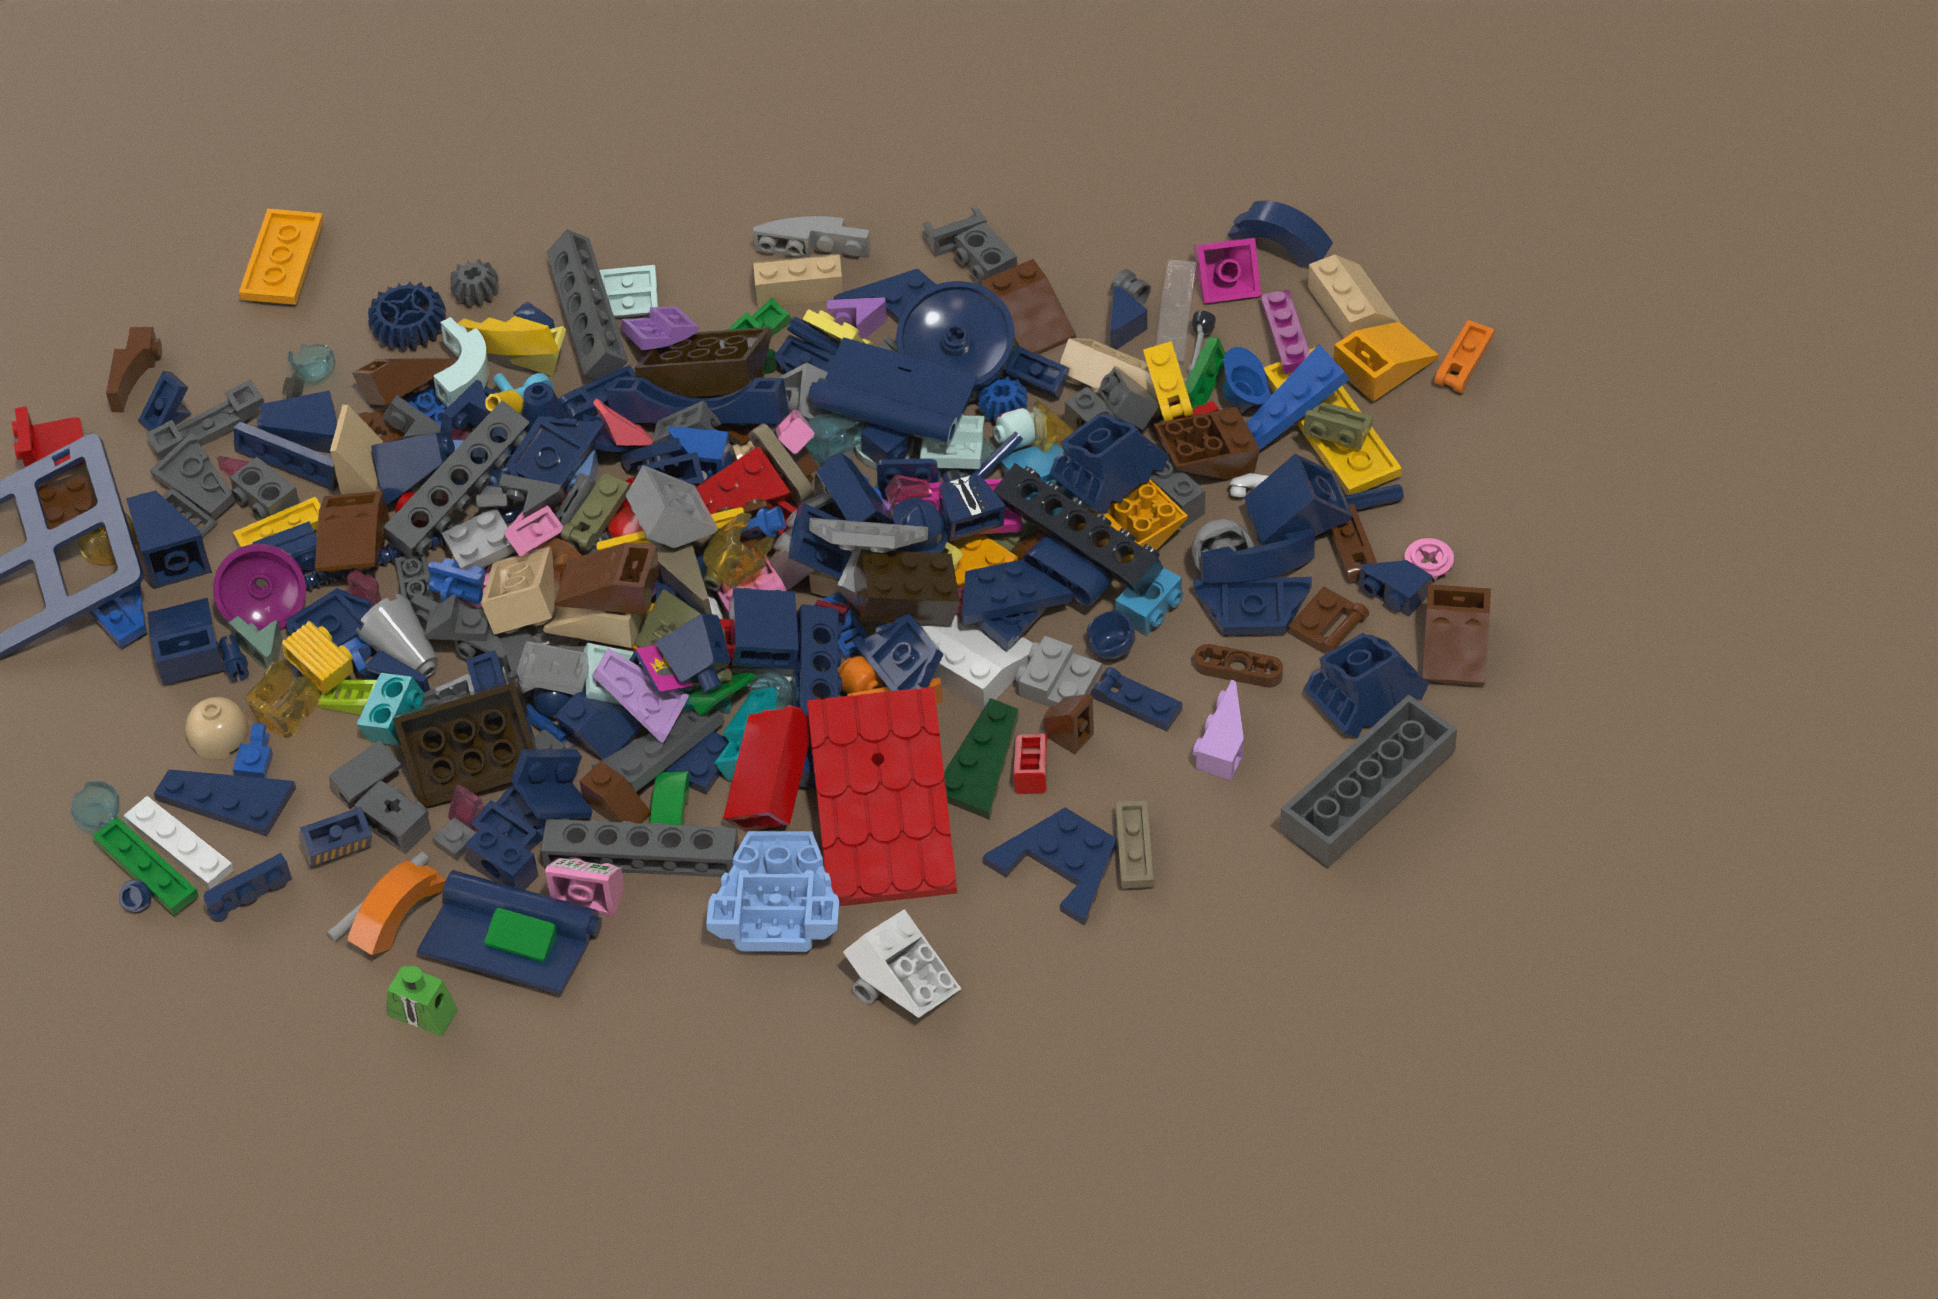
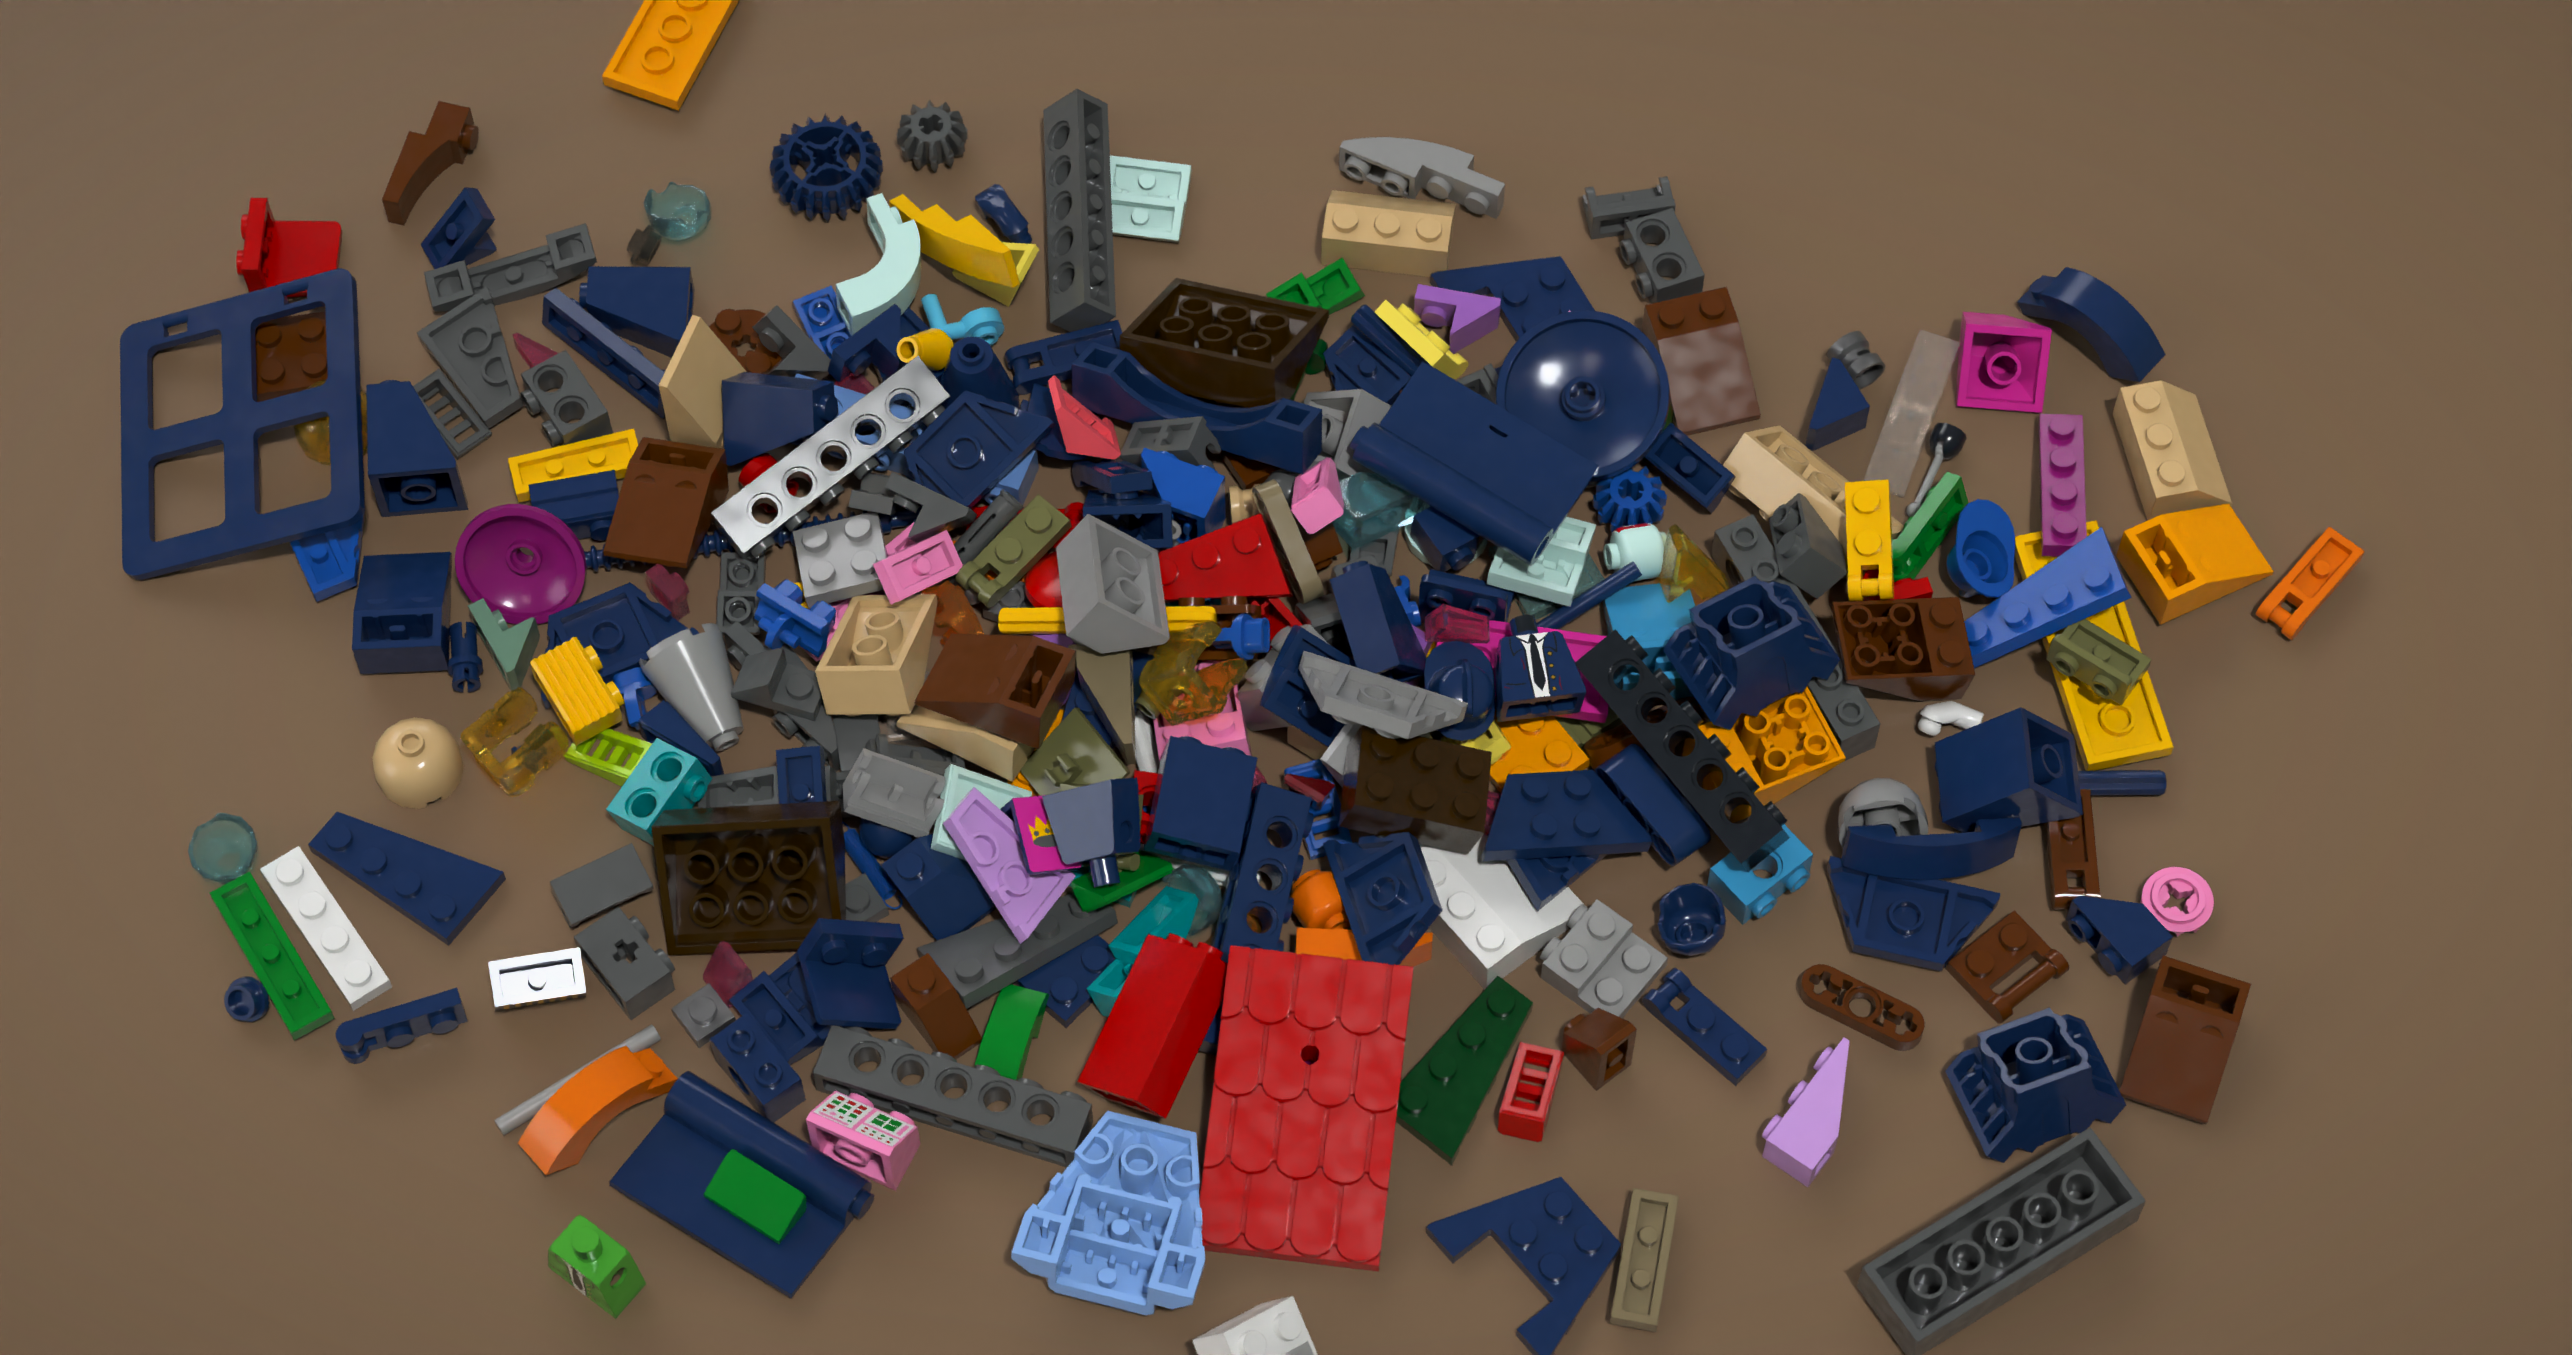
camera: 10 degrees right, 10 degrees up
(254, 758) = (459, 820): blue plate -> none
(386, 378) = (787, 266): reddish brown slope -> none
(661, 329) = (1173, 273): medium lavender slope -> none

